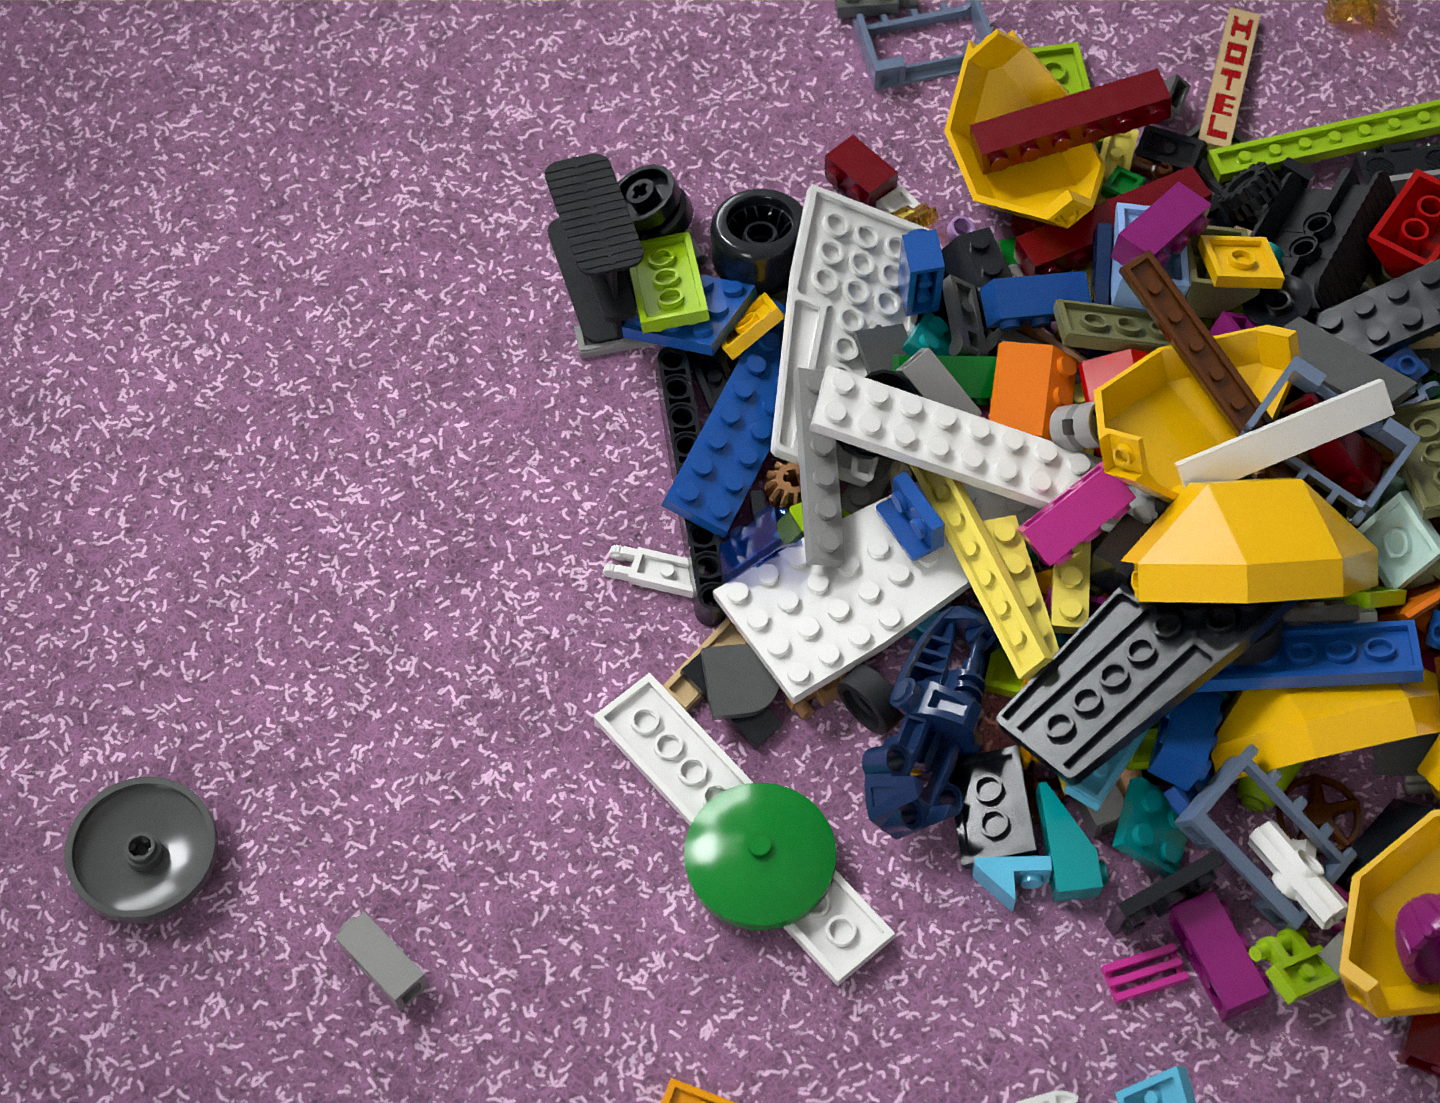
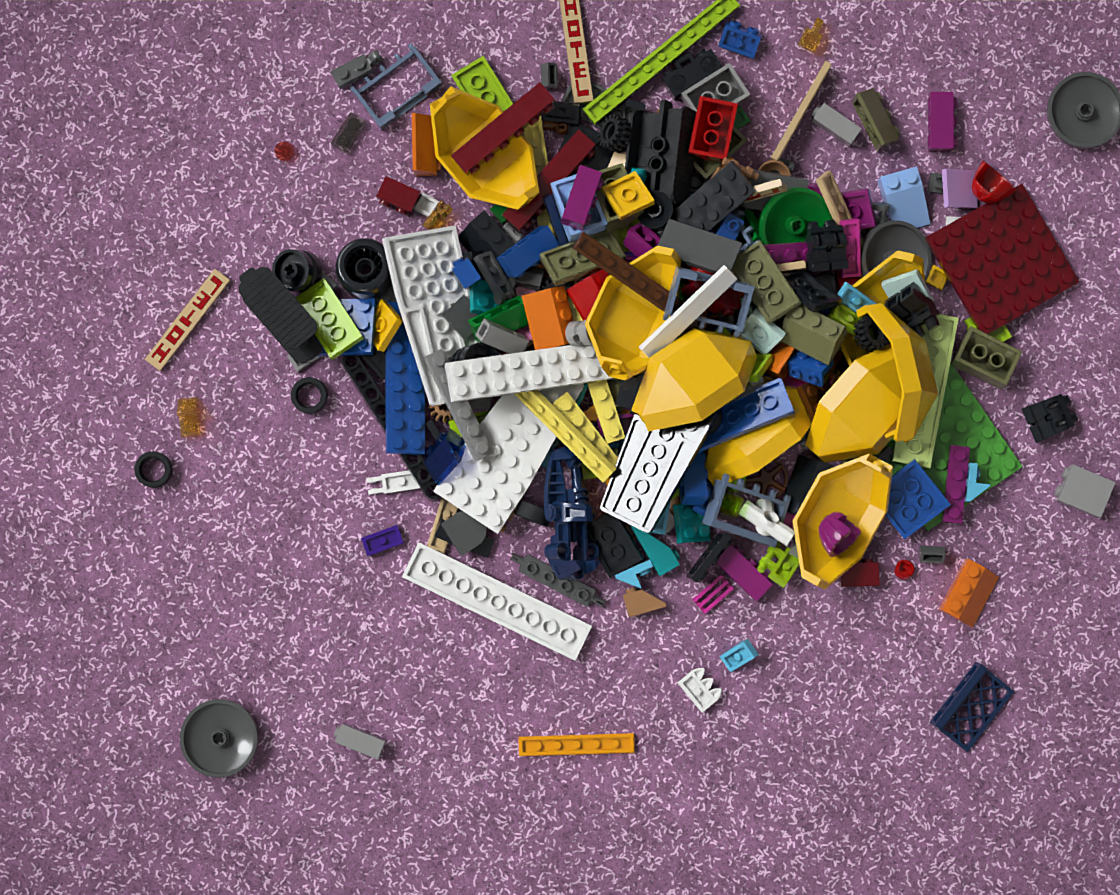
camera: 30 degrees left, 25 degrees up
(286, 423) = (150, 455): none -> black tyre
(374, 355) = (188, 417): none -> clear yellow slope
(448, 226) = (187, 320): none -> tan tile
(581, 413) = (306, 381): none -> black tyre
(589, 649) = (382, 540): none -> dark purple plate
(713, 65) = (284, 151): none -> clear red tile
(760, 856) = (514, 616): green dish -> none
(823, 75) = (348, 133): none -> clear smoke plate
(877, 848) = (544, 574): none -> dark grey plate
(911, 519) = (516, 418): blue bracket -> none
(922, 129) = (423, 147): none -> orange slope
(958, 226) = (467, 206): lavender hinge -> none
(1005, 930) = (640, 602): none -> medium nougat slope
(1076, 515) = (594, 391): dark pink brick -> none
(1121, 182) = (544, 149): green tile -> none
(1239, 818) = (731, 505): none -> clear neon green slope

